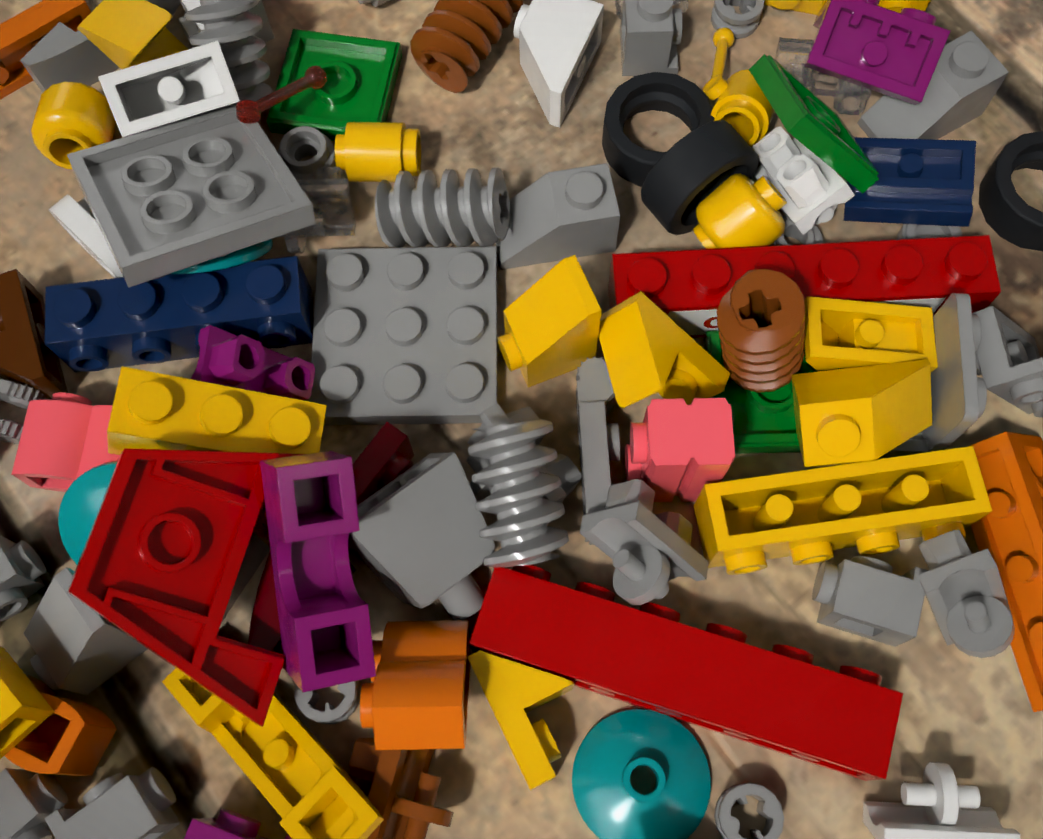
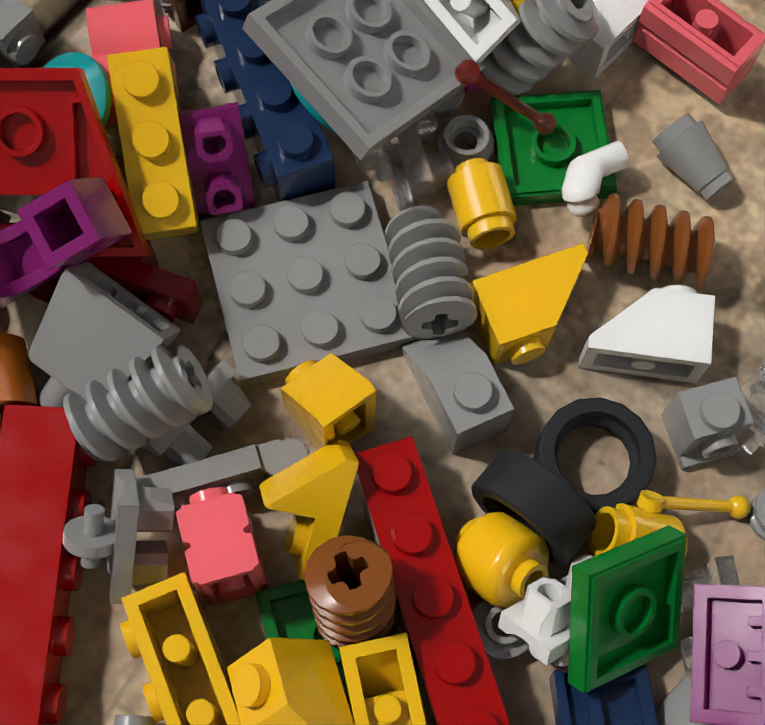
camera: 70 degrees right, 0 degrees up
(385, 57) = (586, 174): none -> white arm
(499, 134) = (524, 304): none -> yellow slope

